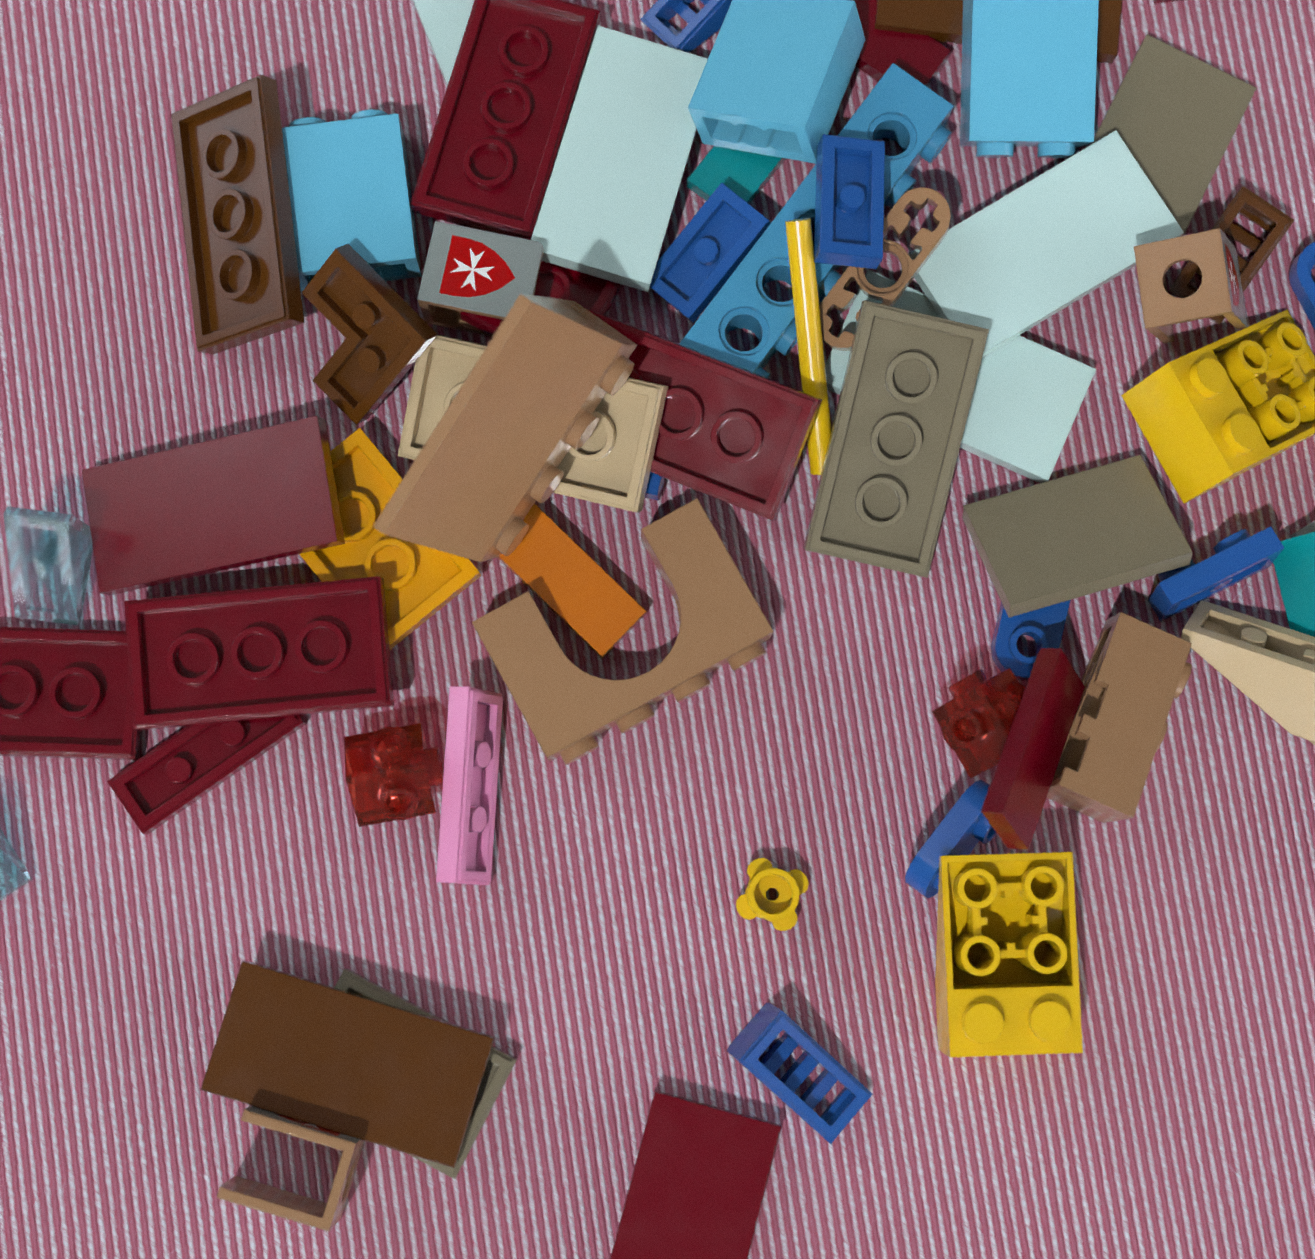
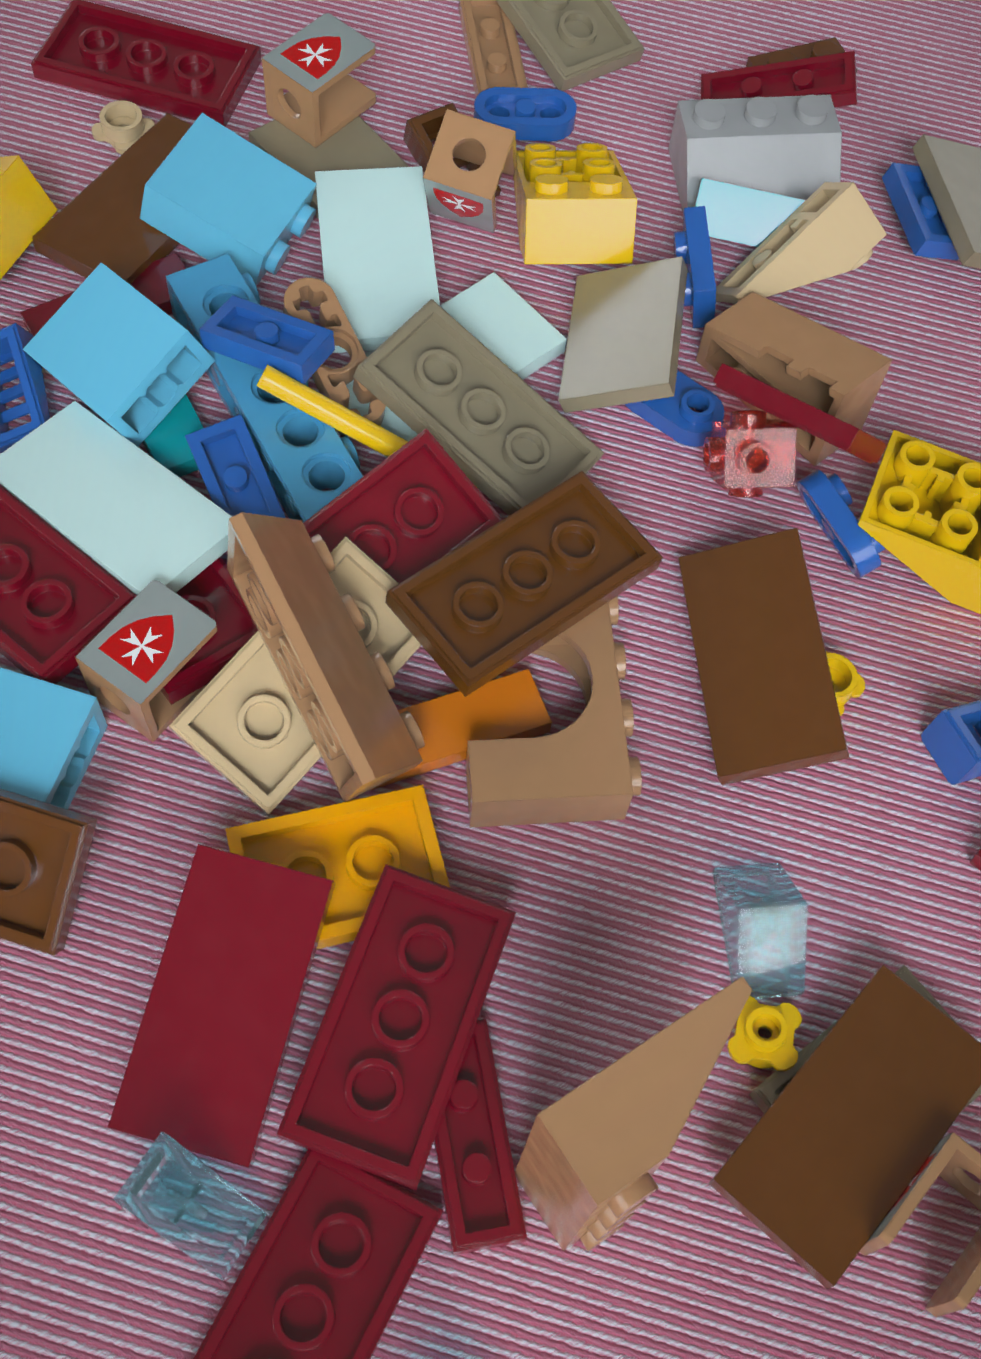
camera: 65 degrees left, 20 degrees down
(187, 855) = (605, 1139): none -> medium nougat slope
(379, 331) = (141, 756): reddish brown plate -> none
(392, 774) = (582, 947): clear red brick -> none
(411, 971) = (762, 1053): none -> yellow plate
(469, 786) = (624, 885): bright pink tile -> none
(494, 920) = (763, 928): none -> clear light blue slope
(710, 567) = (522, 582): none -> reddish brown tile
(764, 818) = (761, 658): none -> reddish brown tile
(1237, 71) = (316, 73): none -> piece

